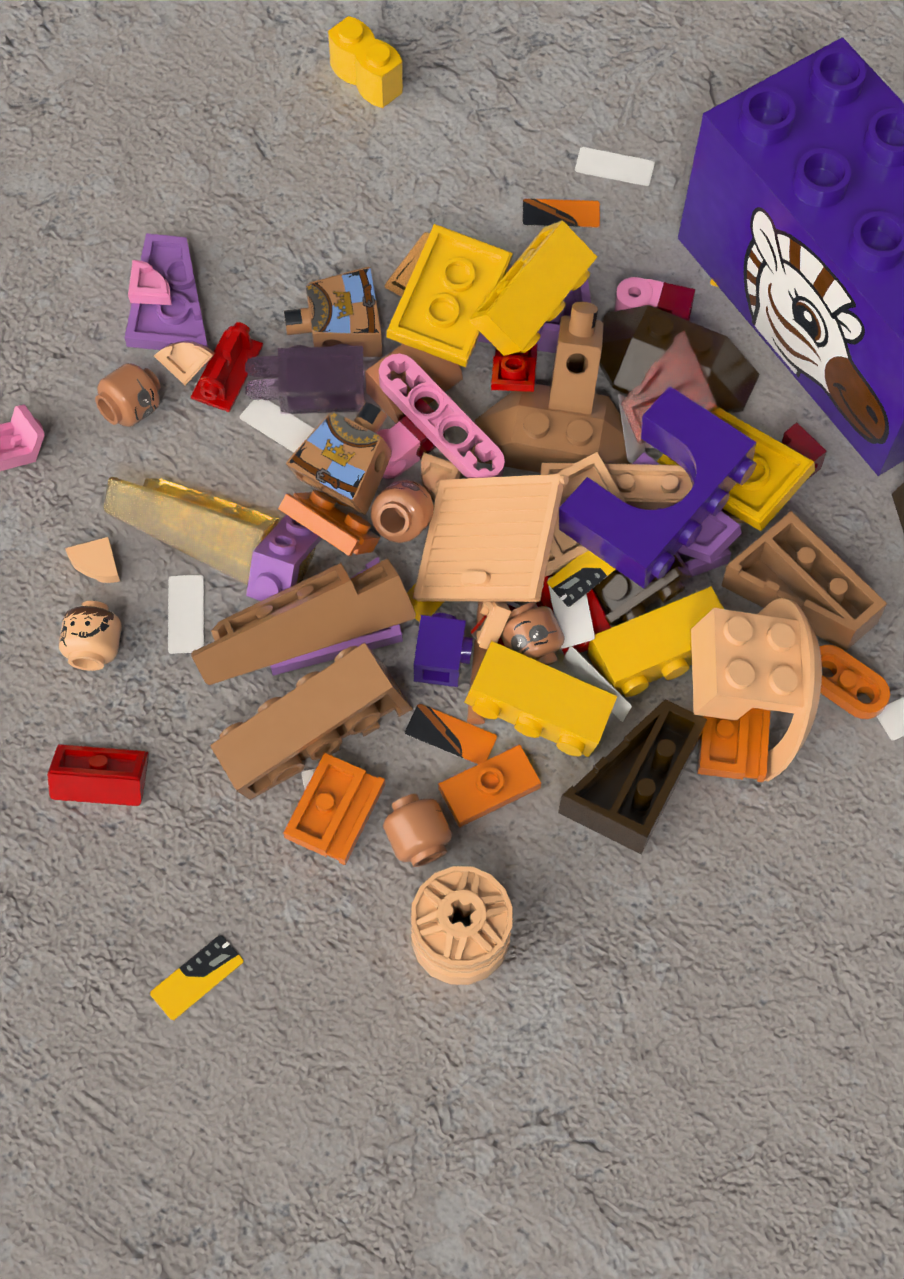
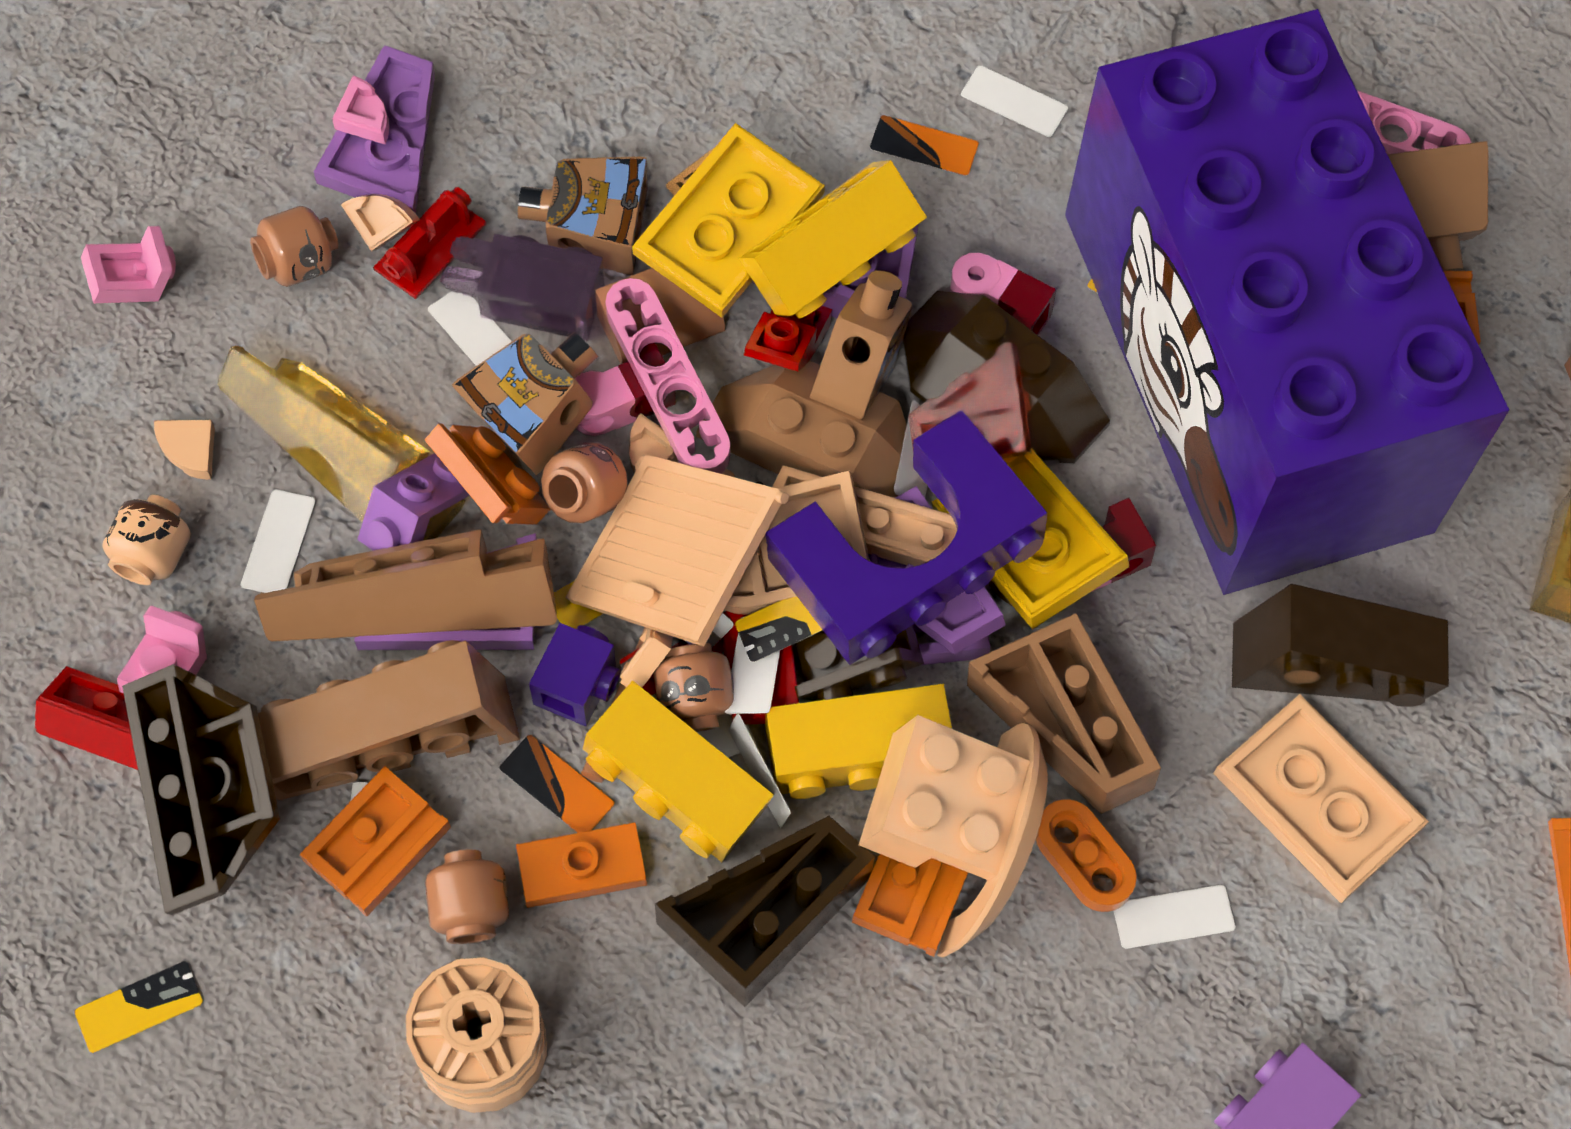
camera: 15 degrees right, 0 degrees up
(132, 718) = (168, 641): none -> bright pink bracket
(197, 798) = (200, 782): none -> dark brown wedge

